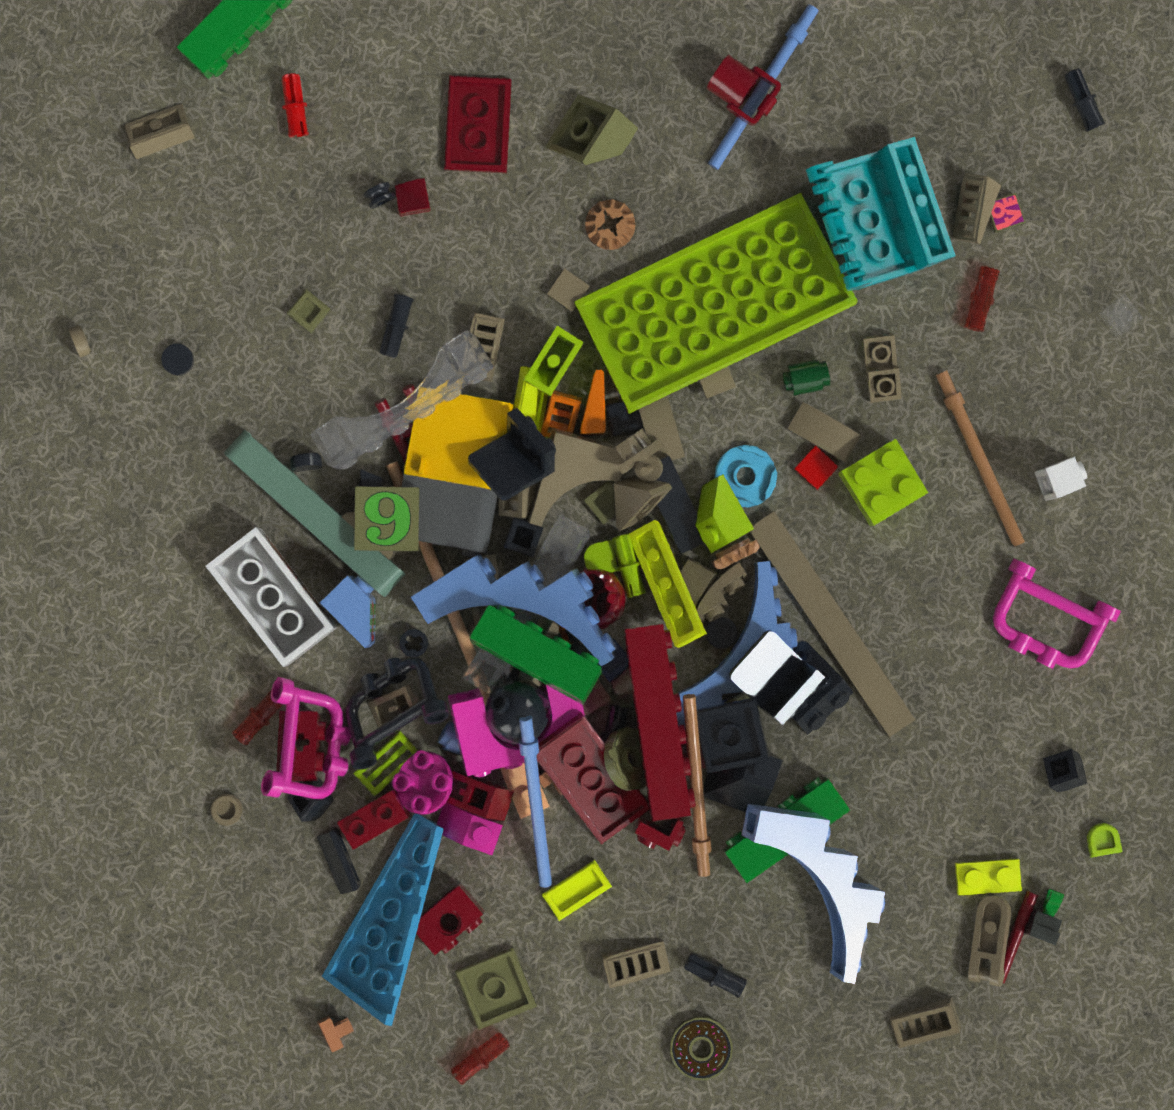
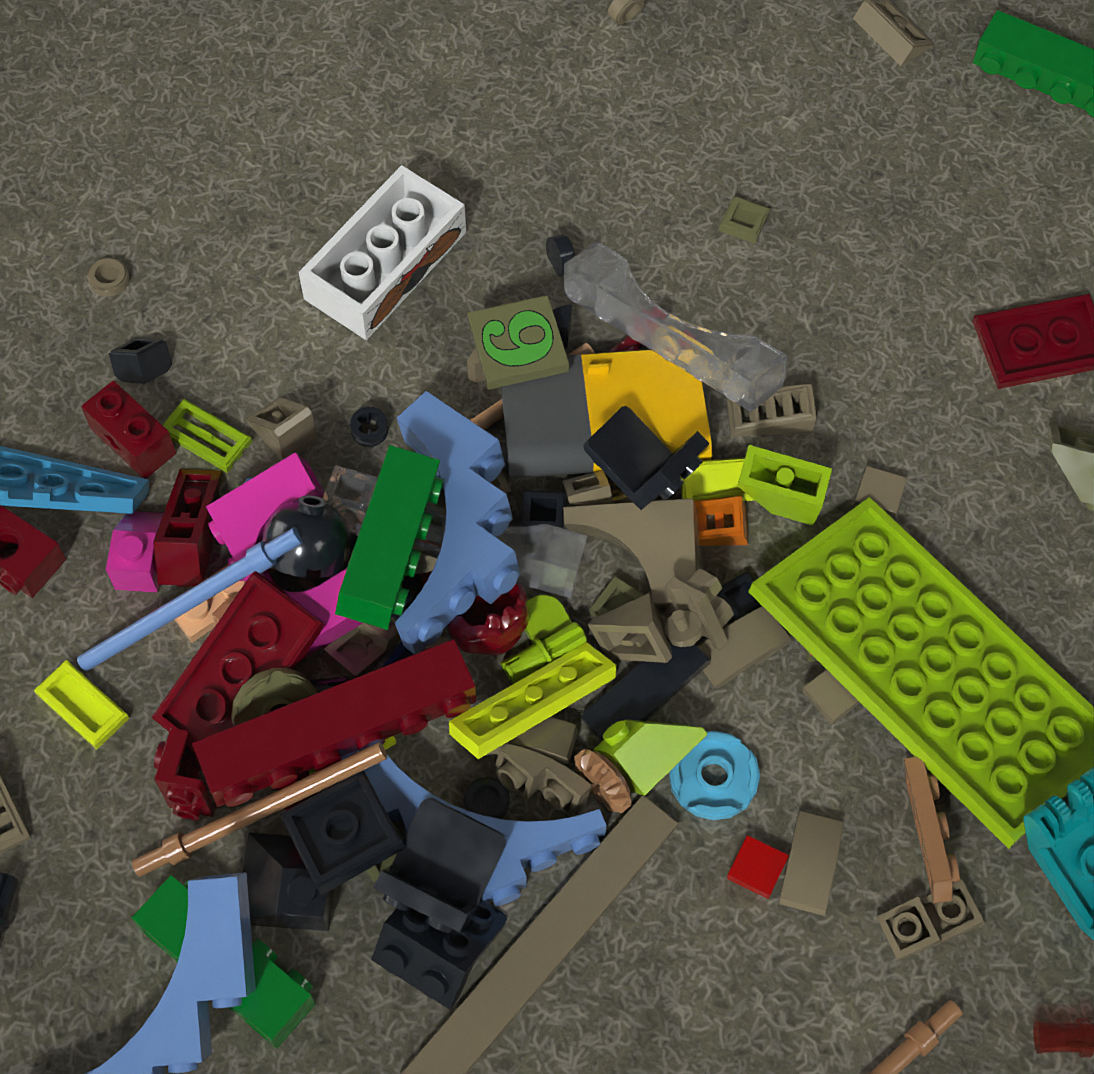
camera: 75 degrees right, 25 degrees down
(177, 359) = (639, 105): black tile -> none
(256, 720) = (231, 280): clear red axle -> none
(294, 105) = (981, 146): red axle -> none
(310, 760) = (203, 323): dark red brick -> none
(312, 512) = (500, 274): sand green beam -> none
(336, 735) = (190, 368): dark pink bar -> none
(339, 861) = (63, 415): black slope -> none
(353, 608) = (392, 337): medium blue slope -> none
(379, 195) = (913, 253): black bush -> none
(396, 325) = (762, 311): black axle -> none
(412, 197) = (924, 292): dark red slope -> none
(423, 782) = (188, 472): dark pink dish -> none
(430, 707) = (280, 432): black bar -> none
(594, 415) = (734, 556): orange slope -> none
(605, 238) = (984, 536): medium nougat gear -> none
(806, 377) = (879, 815): dark green brick -> none
(828, 348) = (931, 830): none -> medium nougat plate
(883, 482) = (768, 960): lime brick -> none

